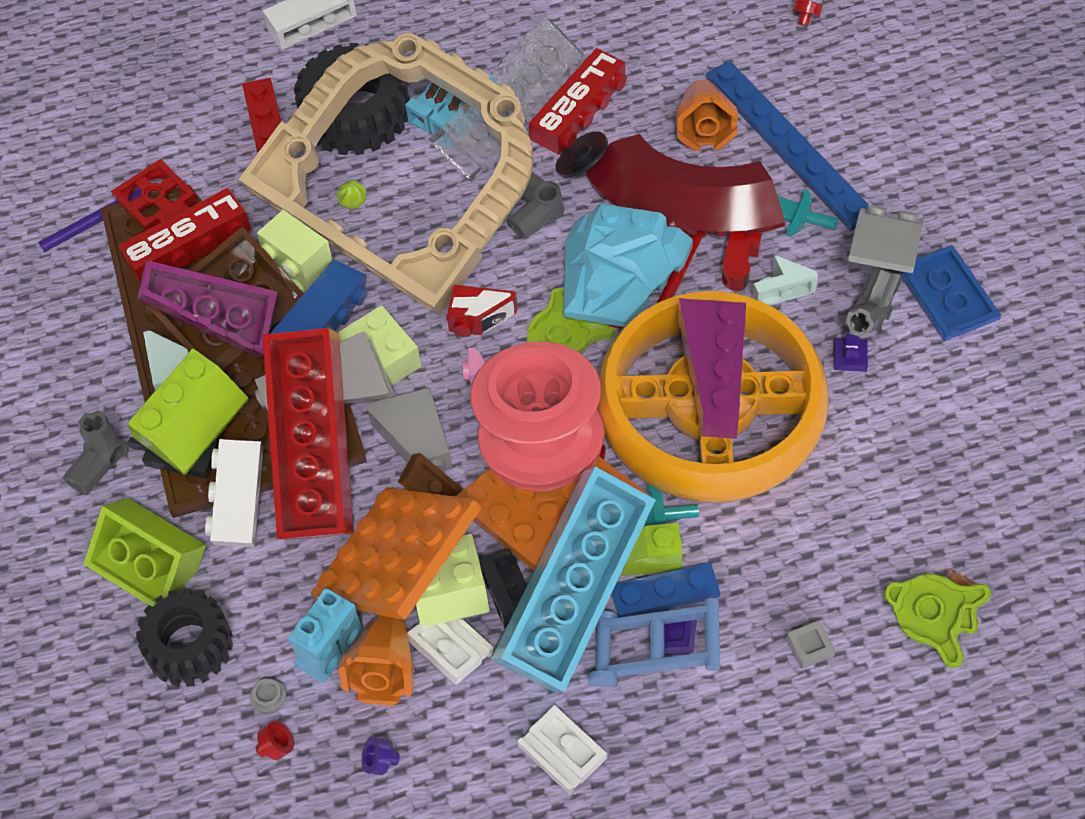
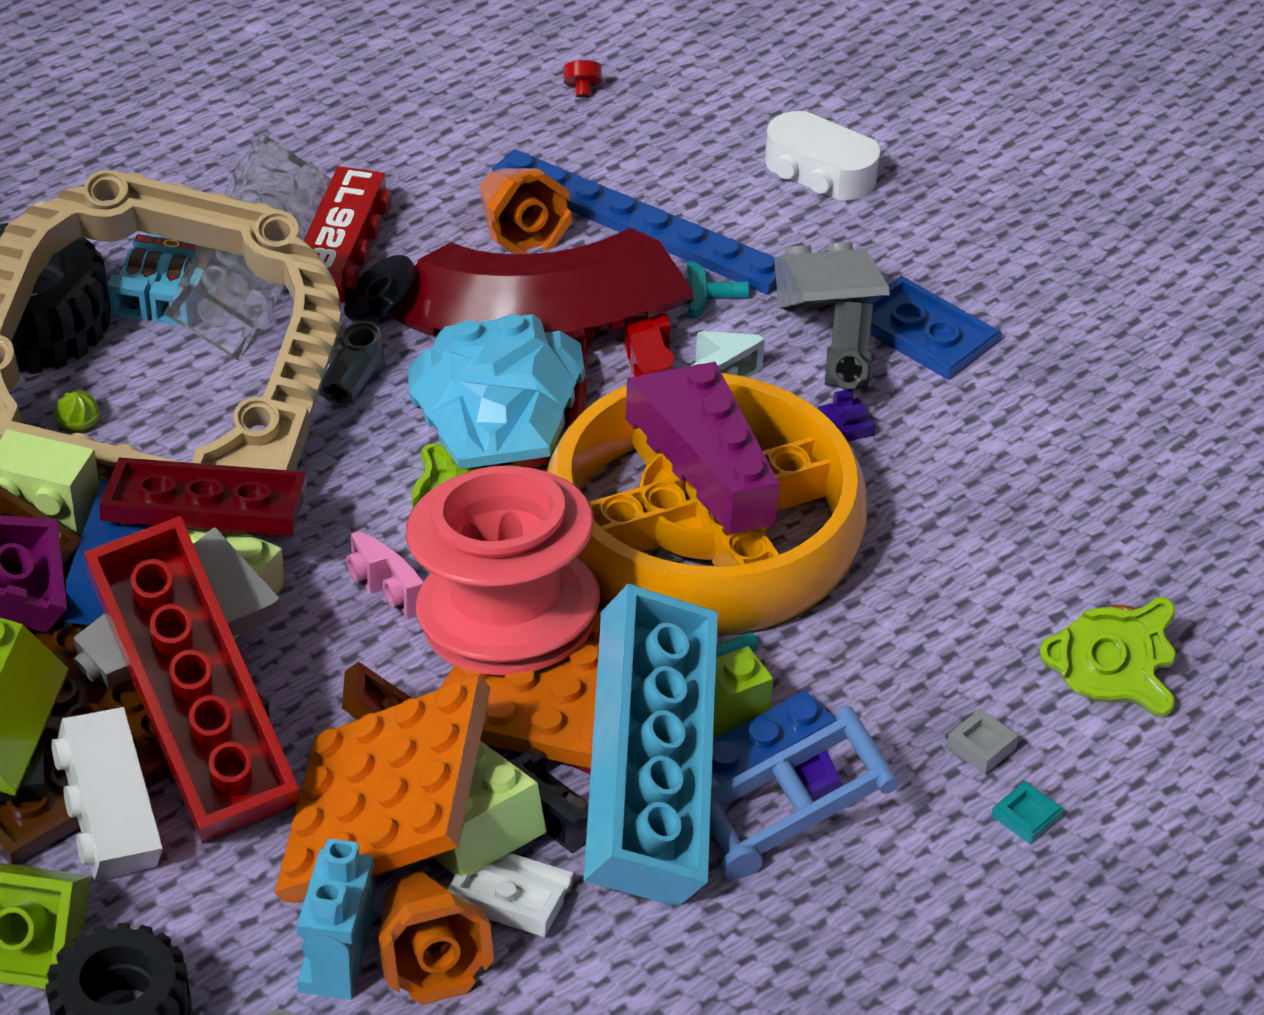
camera: 30 degrees left, 15 degrees down
(383, 295) = (204, 496): none -> dark red plate
(411, 426) = (312, 650): light grey slope -> none
(479, 309) = (339, 493): slope -> none
(562, 749) = (733, 962): white plate -> none
(815, 709) = (1027, 812): none -> teal tile
(945, 125) = (822, 155): none -> white brick

